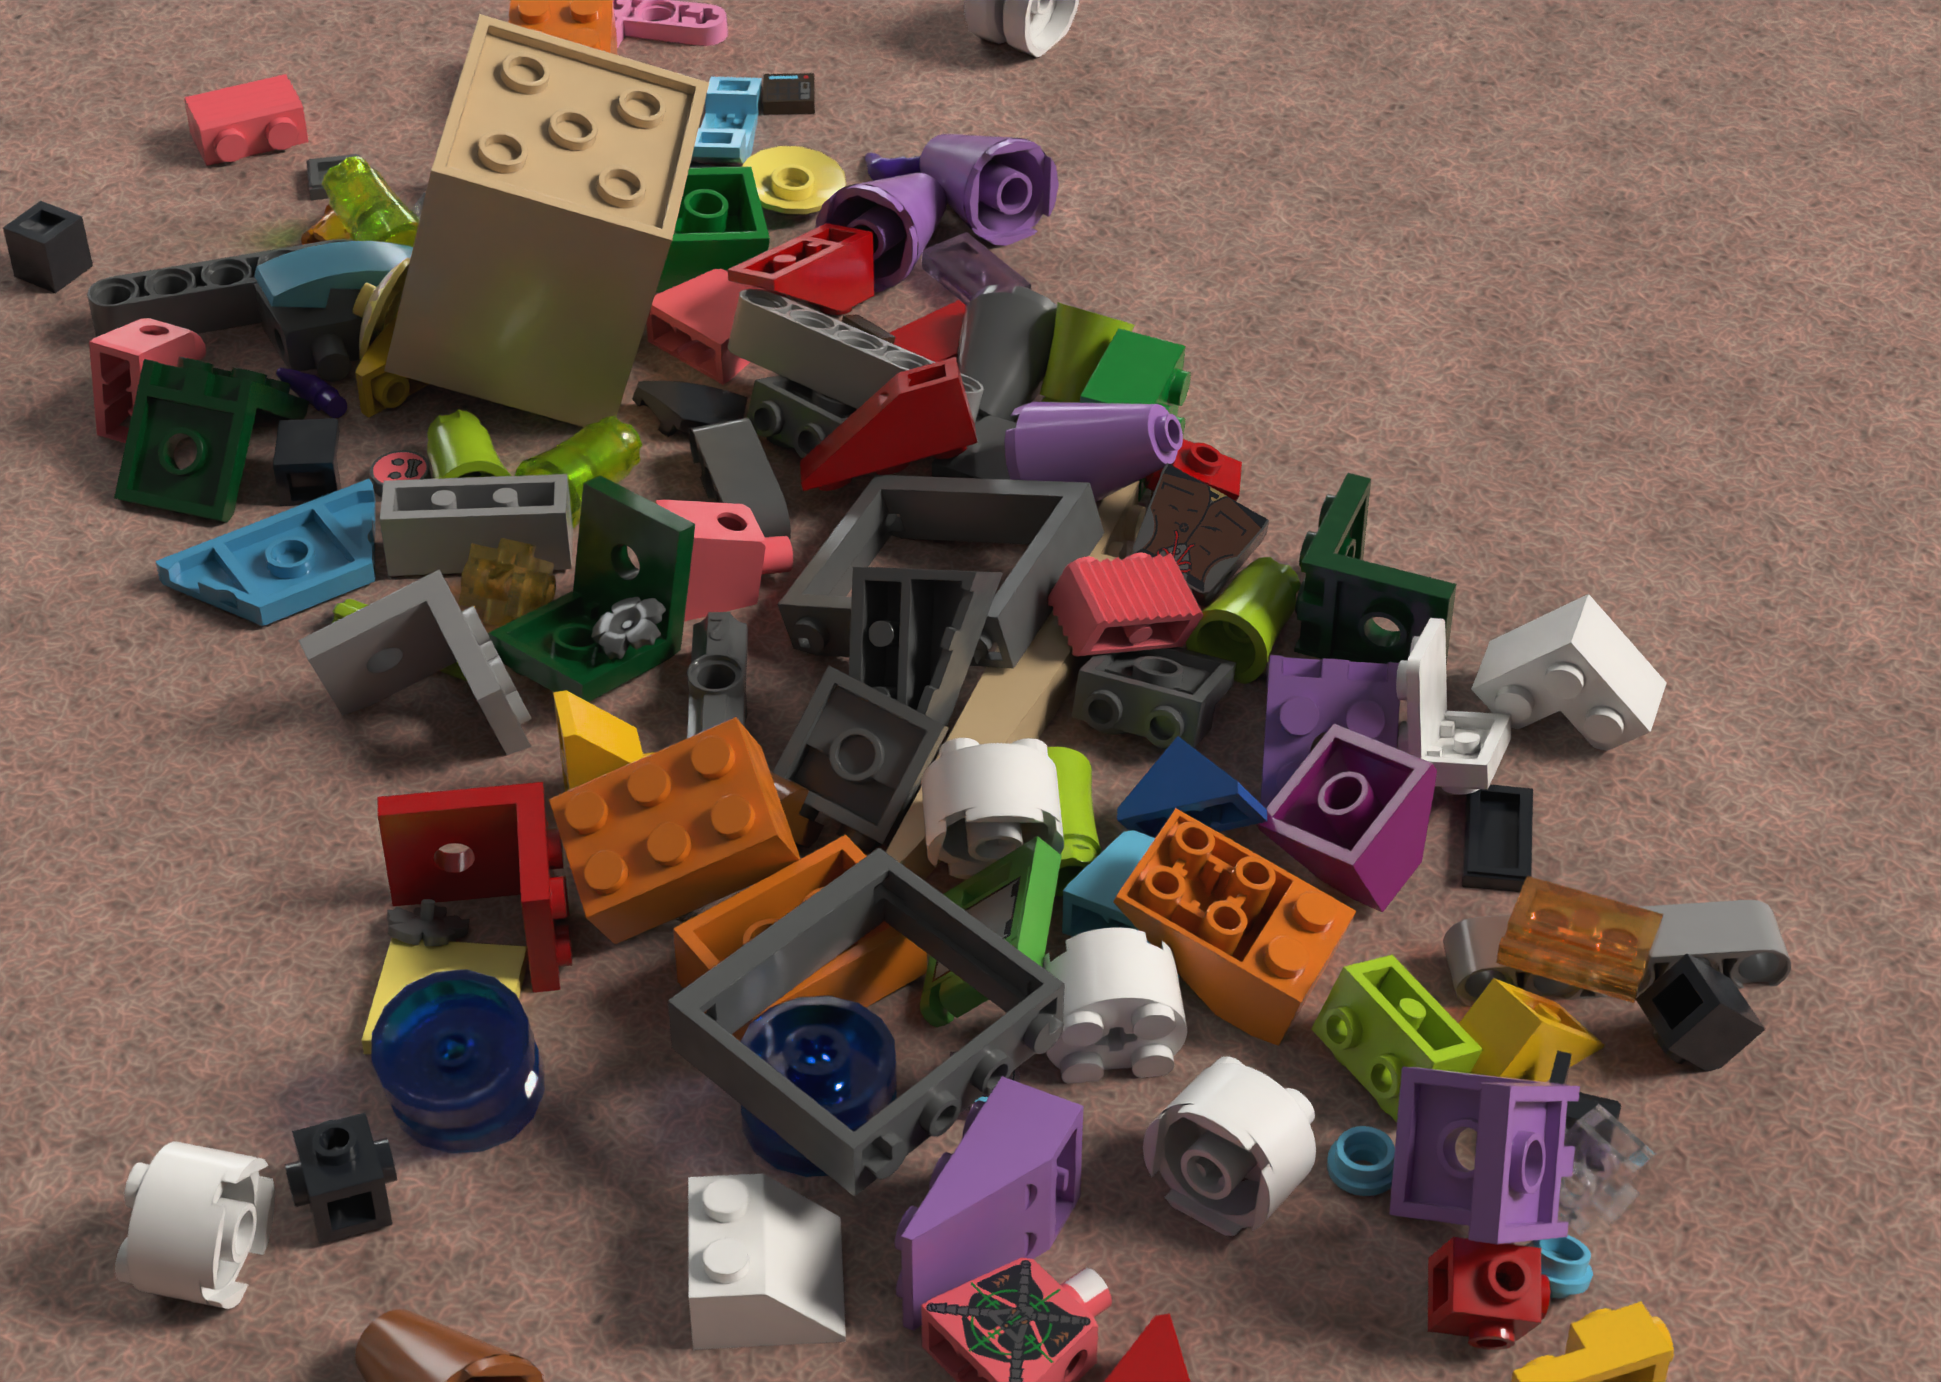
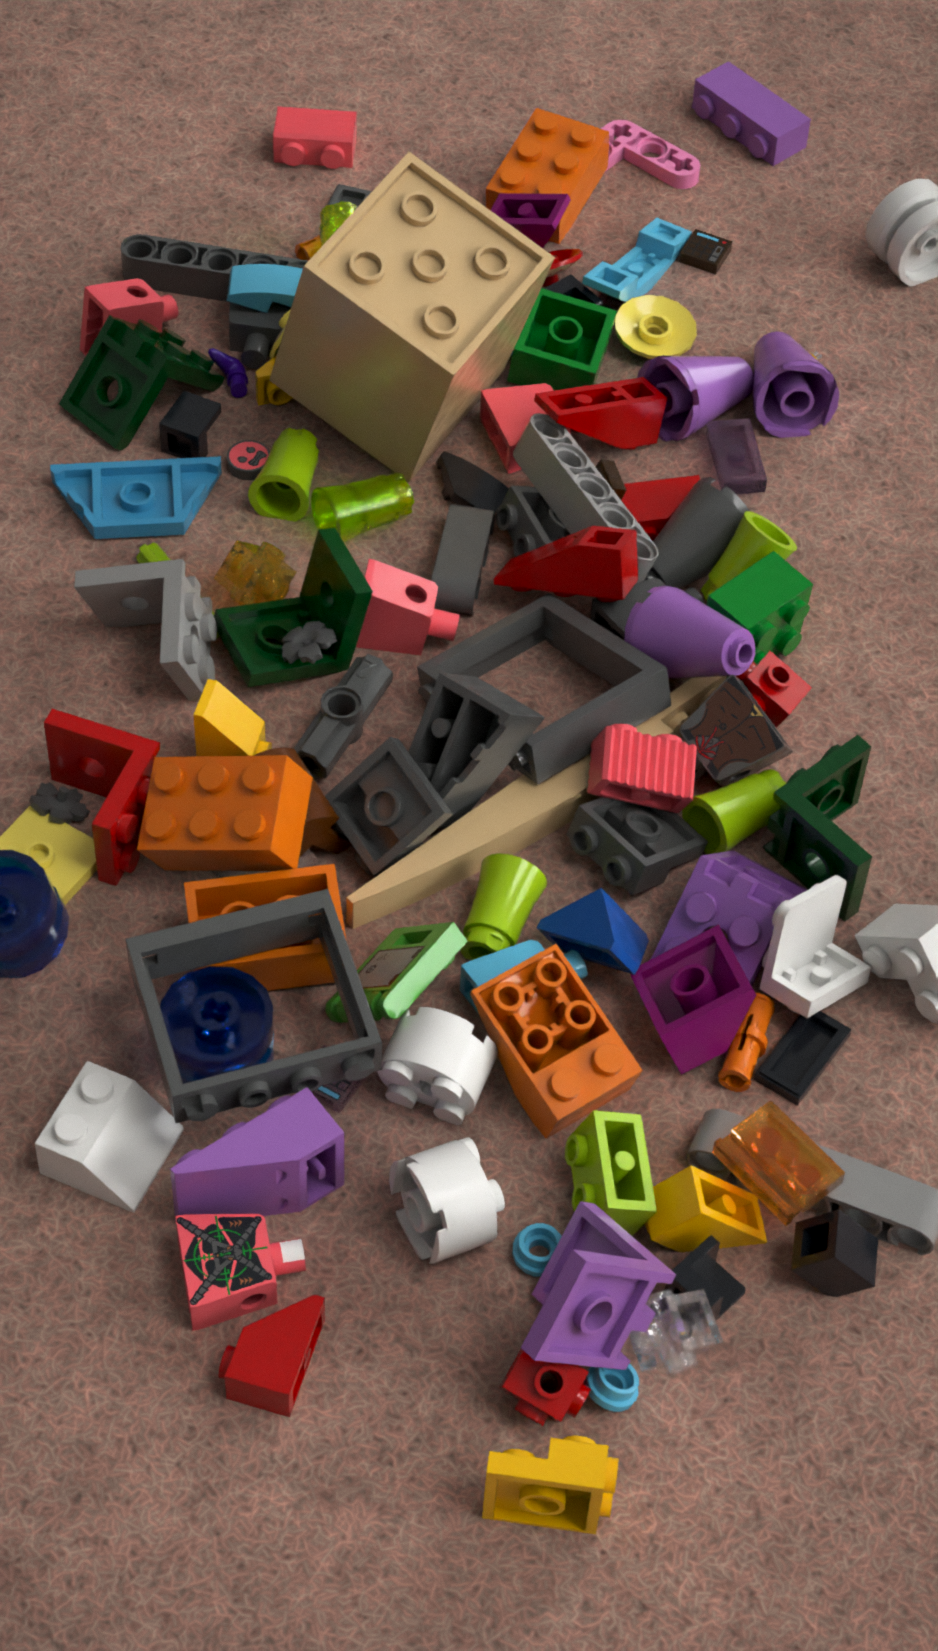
camera: 25 degrees right, 10 degrees up
(48, 246) = (125, 192): black panel -> none
(436, 520) = (246, 511): light grey brick -> none
(883, 168) = (735, 343): dark purple animal -> none
(989, 802) = (440, 884): white brick -> none
(1442, 872) = (747, 1045): none -> orange pin

